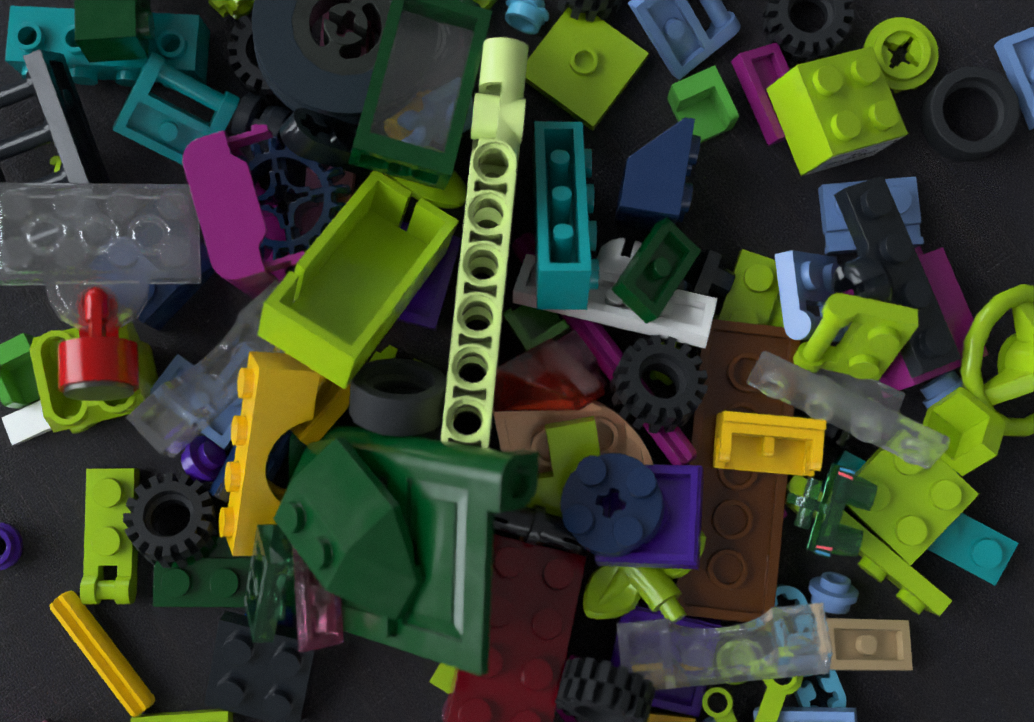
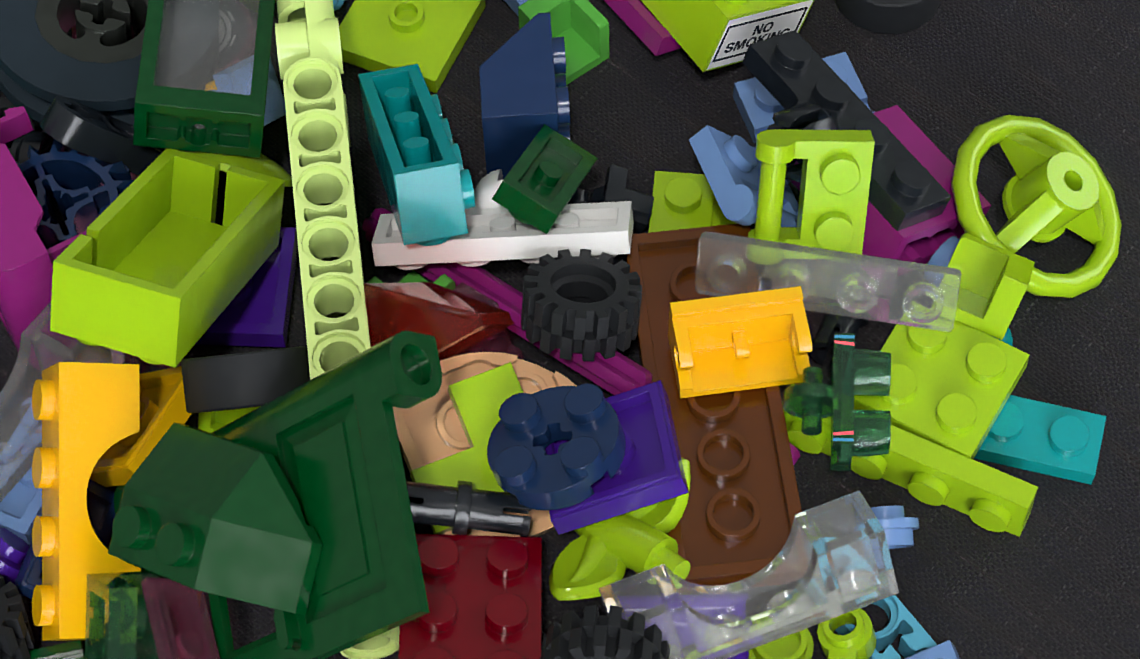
camera: 15 degrees left, 25 degrees down
(870, 644) = (950, 578): tan plate -> none

